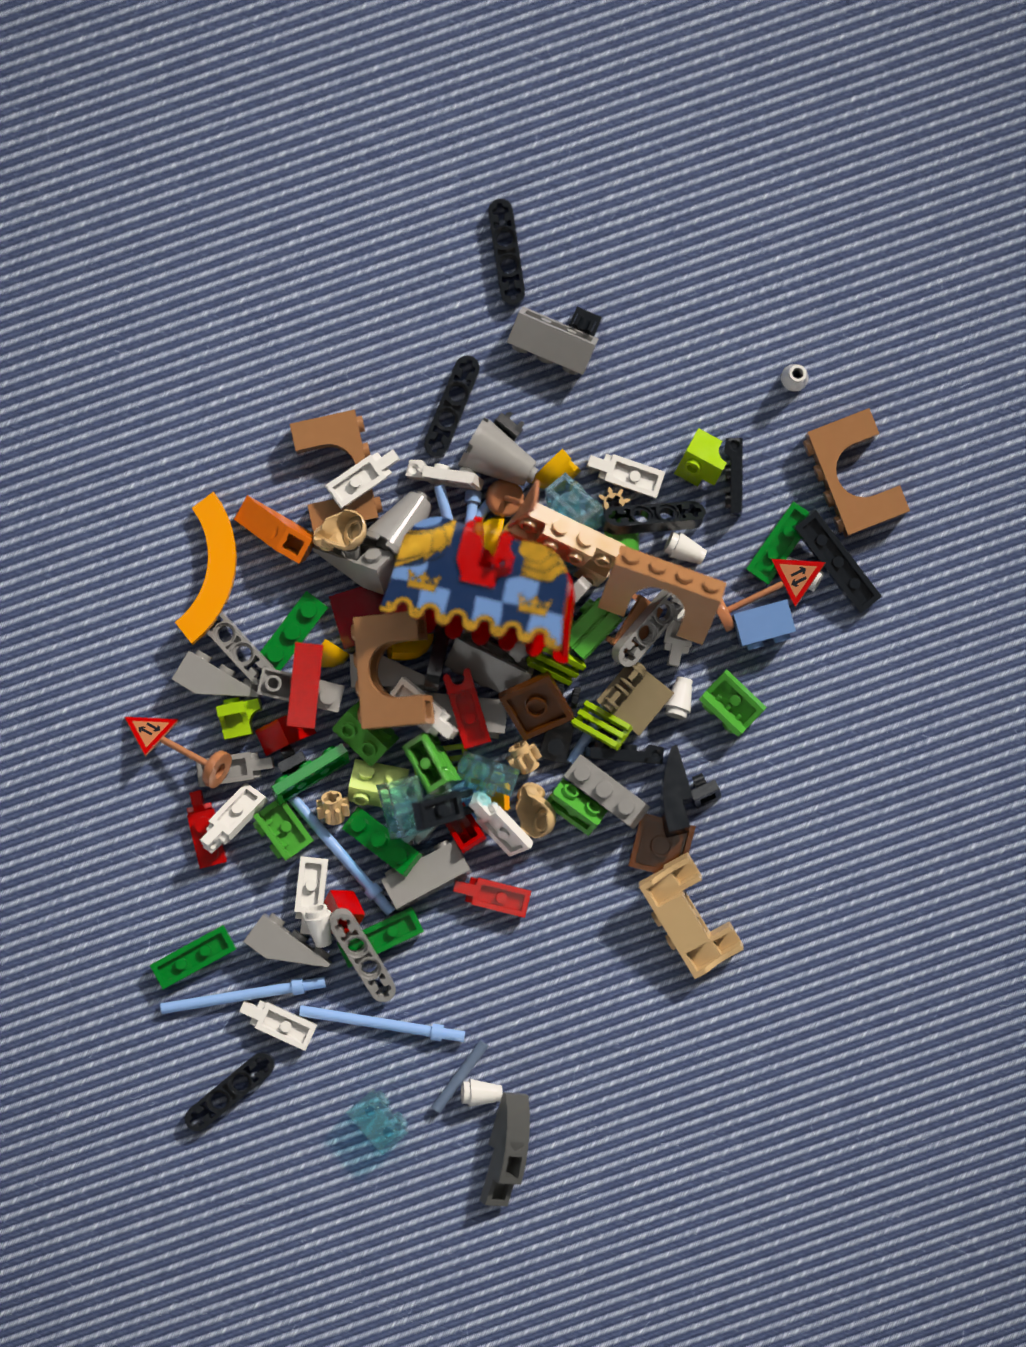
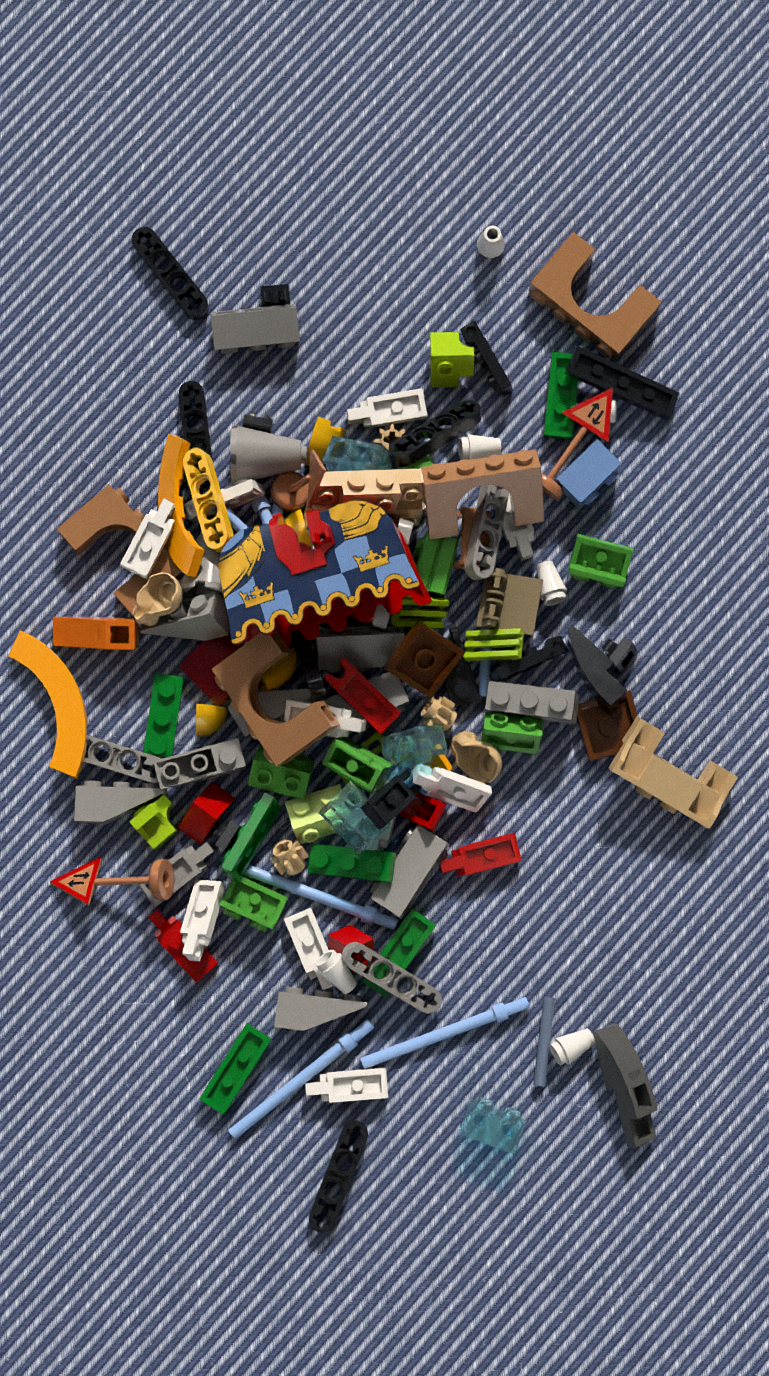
camera: 30 degrees left, 5 degrees down
(304, 685) = (201, 756): red tile -> none
(386, 494) = (180, 544): none -> light orange tile
(425, 470) = (207, 500): none -> yellow beam

